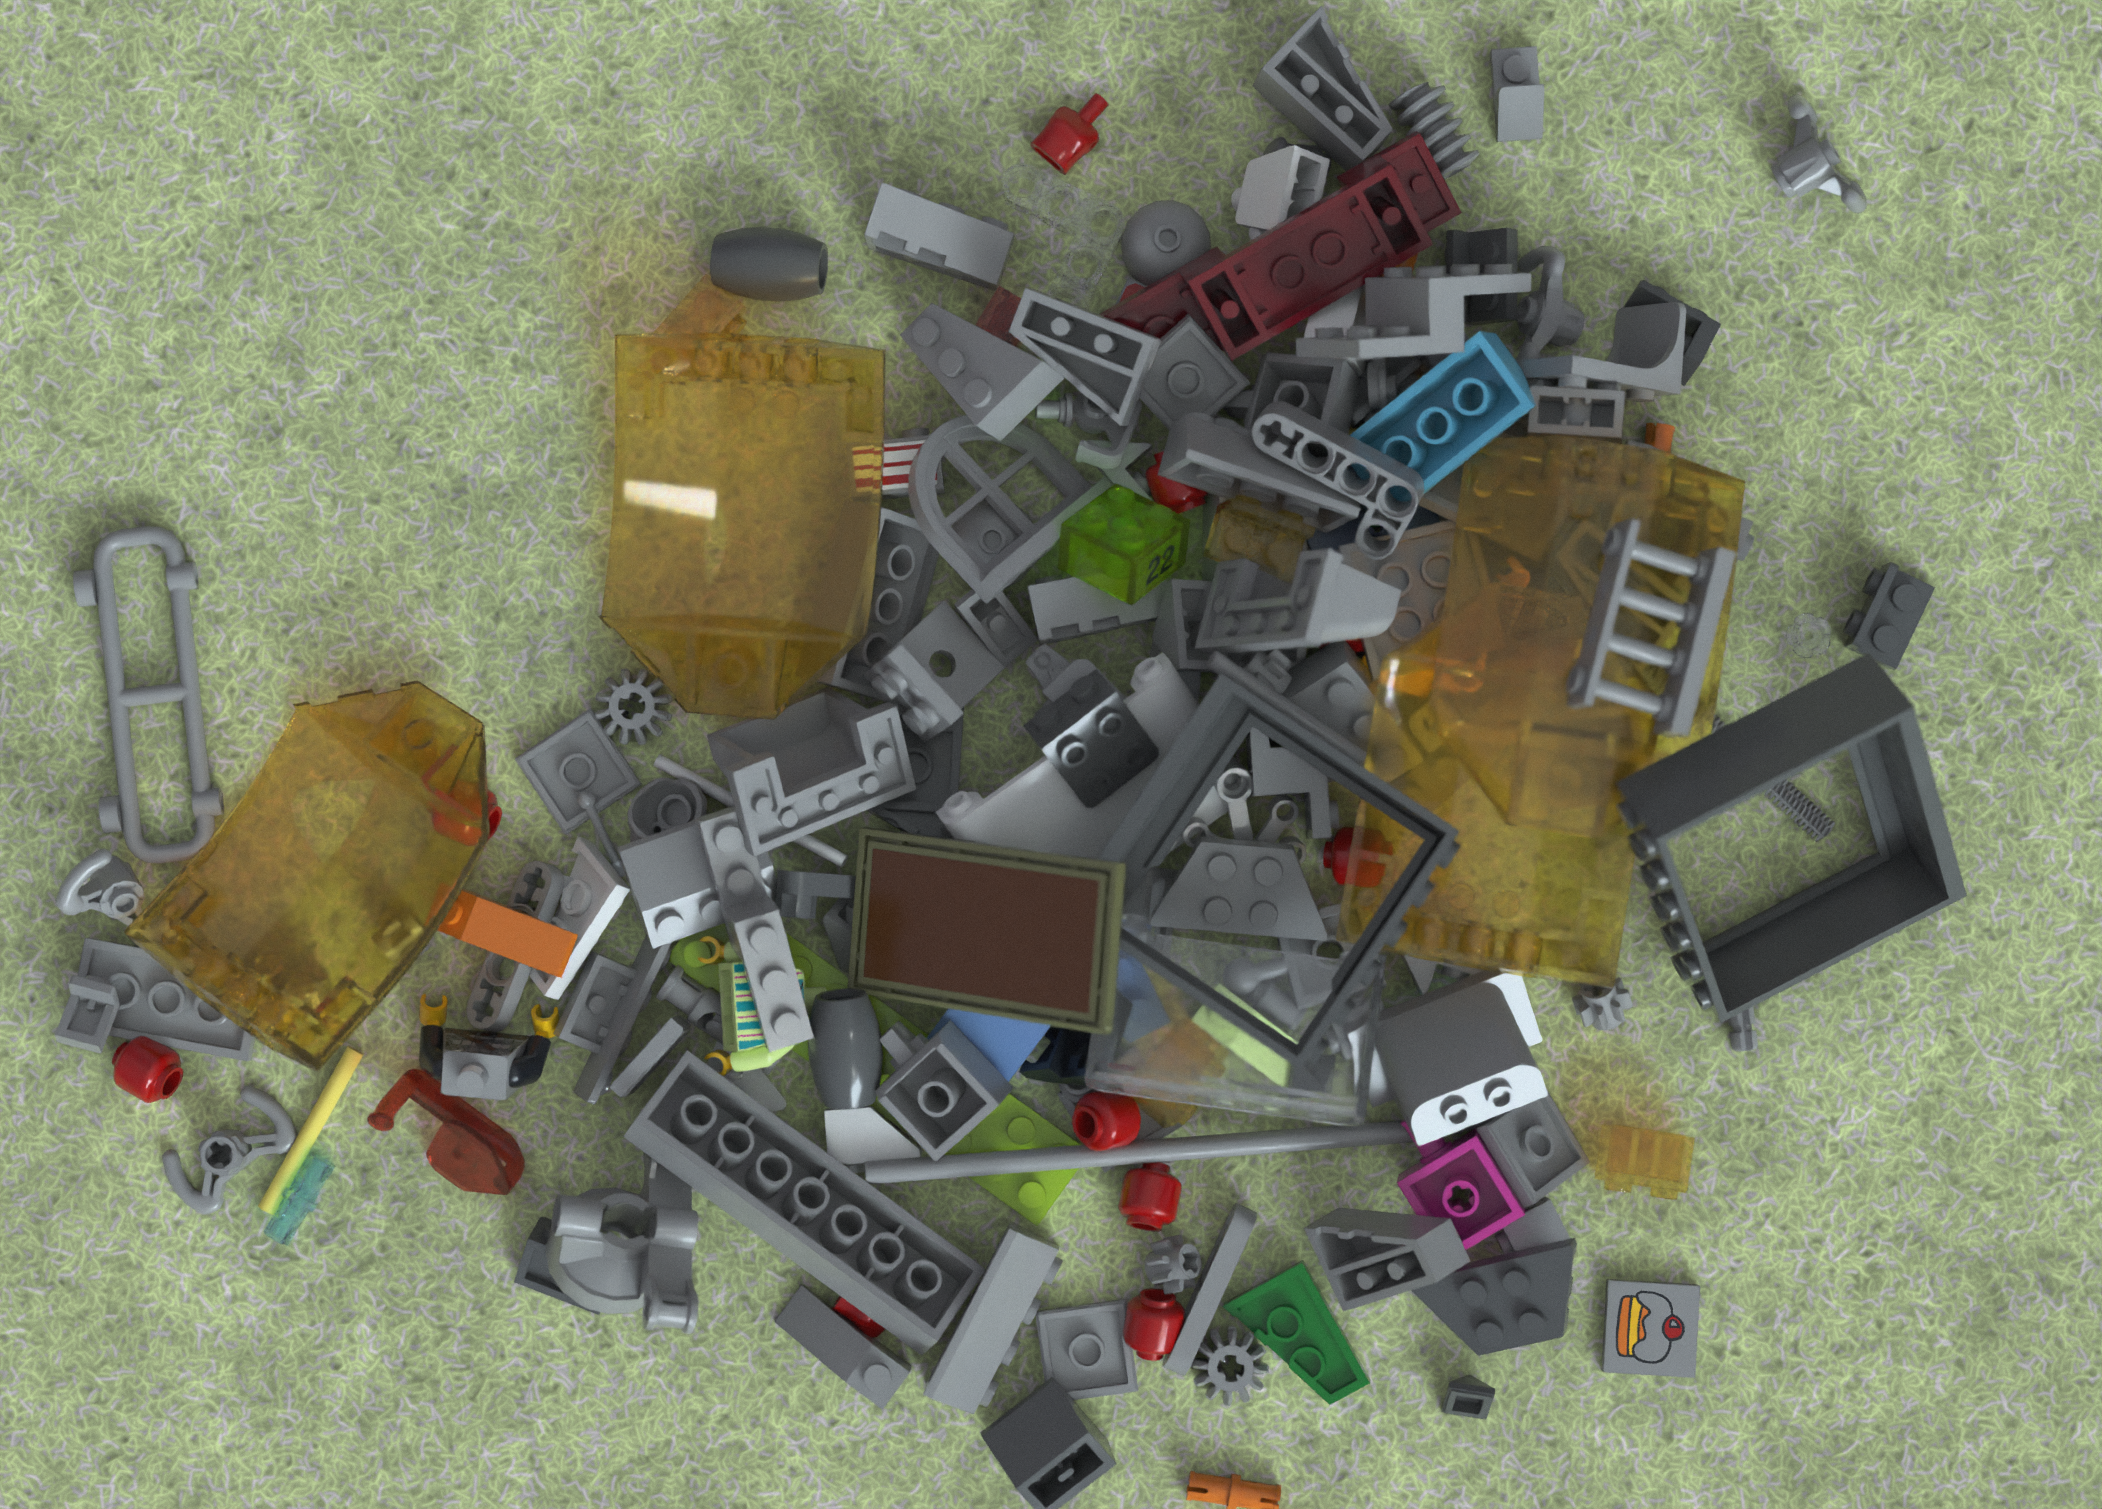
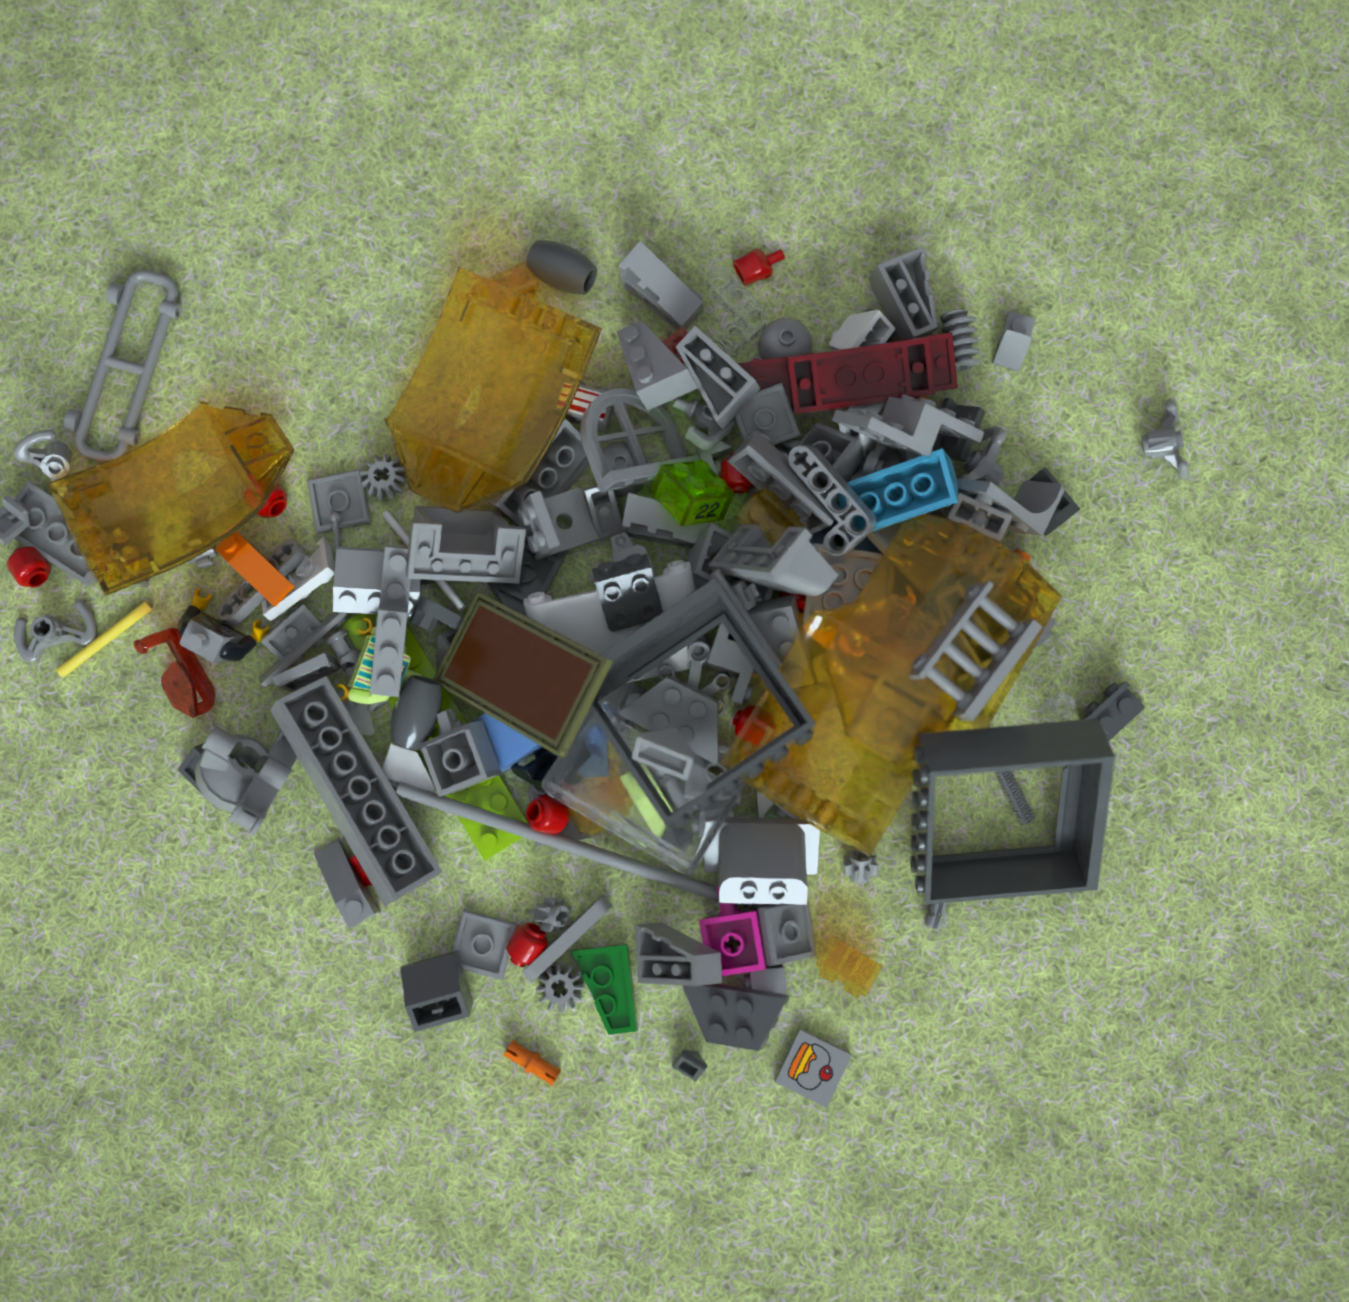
camera: 25 degrees right, 5 degrees down
(299, 1199) = (80, 674): clear light blue pin -> none
(664, 805) = (375, 536): light grey hair -> none
(992, 1318) = (435, 902): light grey slope -> none
(1149, 1197) = (555, 870): red head -> none
(1256, 962) = (665, 751): none -> light grey slope

